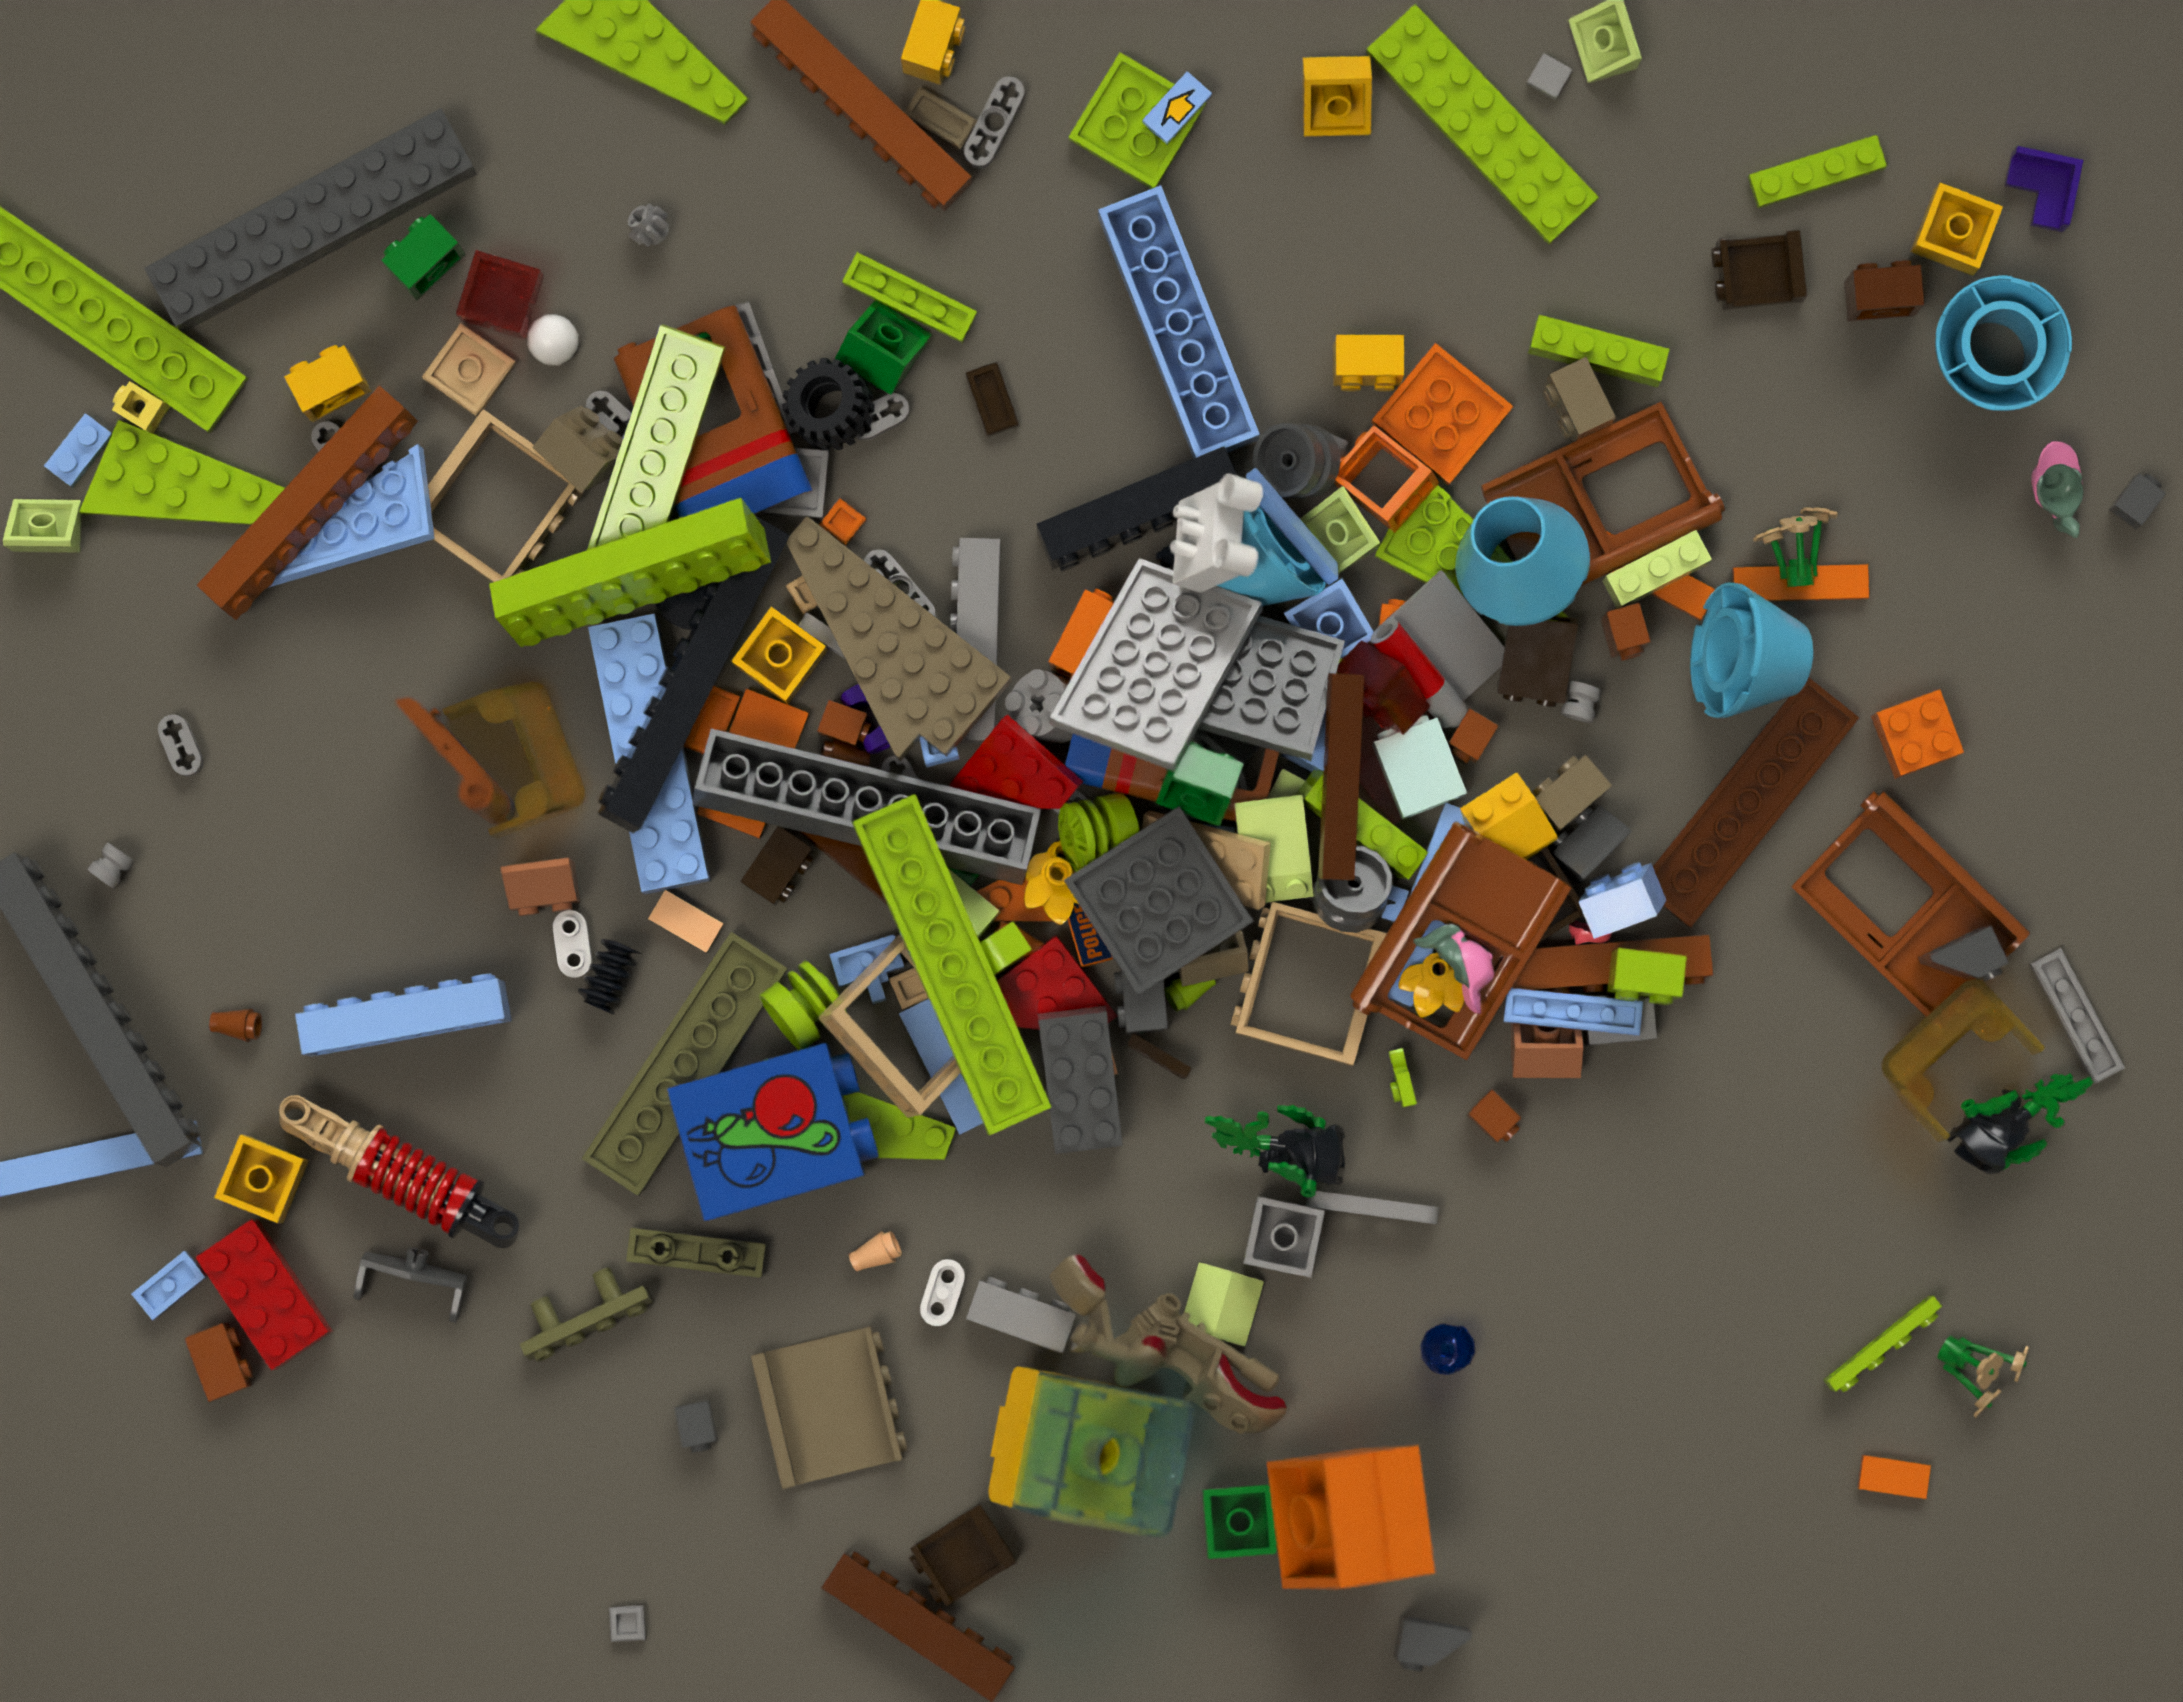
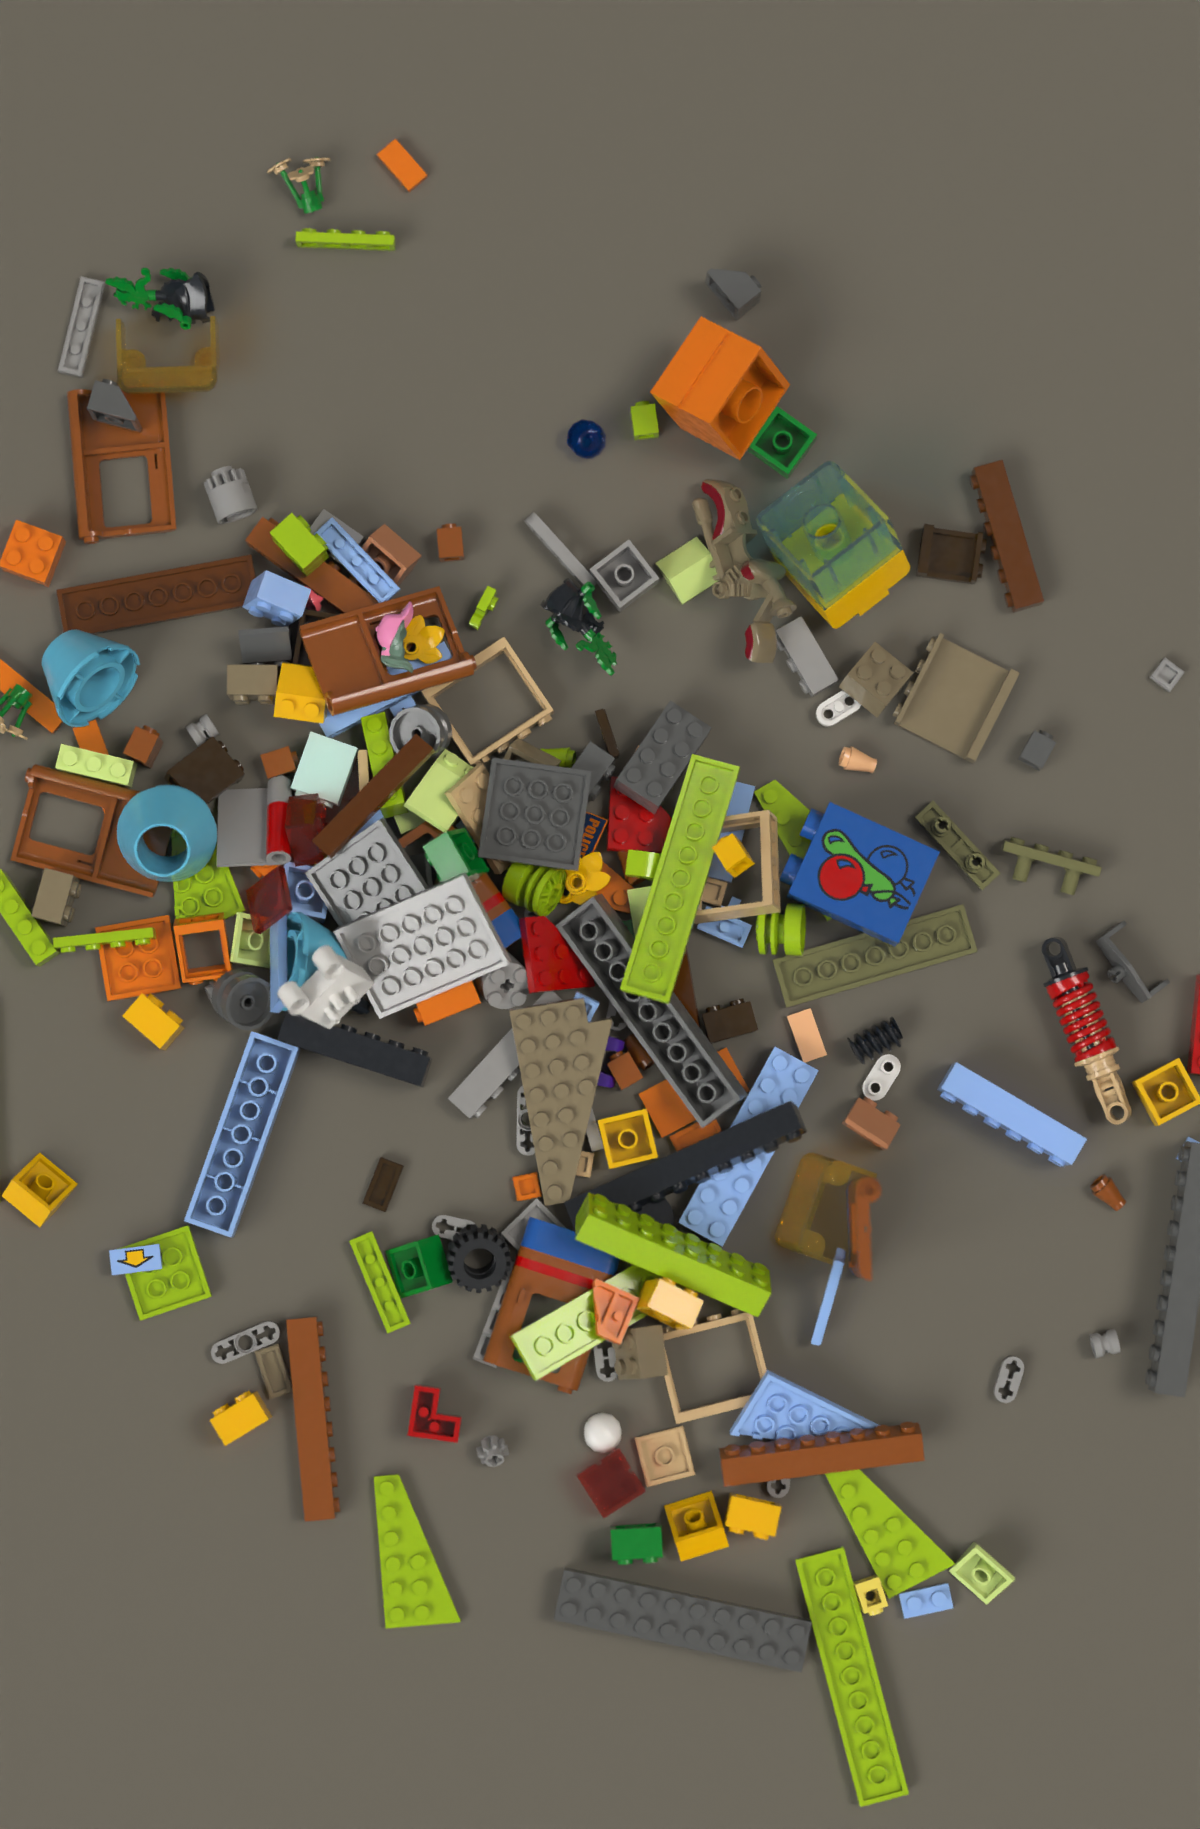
camera: 140 degrees left, 0 degrees up
(376, 326) = (696, 1526): none -> yellow slope
(434, 667) = (828, 1296): none -> light blue tile
(594, 517) = (669, 1304): none -> yellow brick
(643, 462) = (612, 1311): none -> orange wing
(740, 198) = (426, 1421): none -> red brick
(917, 1033) = (733, 855): none -> yellow brick
(927, 1352) = (876, 679): none -> dark tan brick
(1357, 582) = (269, 900): none -> clear red tile
(1377, 800) = (363, 768): none -> tan tile
(1404, 1421) = (644, 420): none -> lime brick
(1480, 410) = (115, 939): none -> lime plate
(1767, 970) = (230, 495): none -> light grey gear

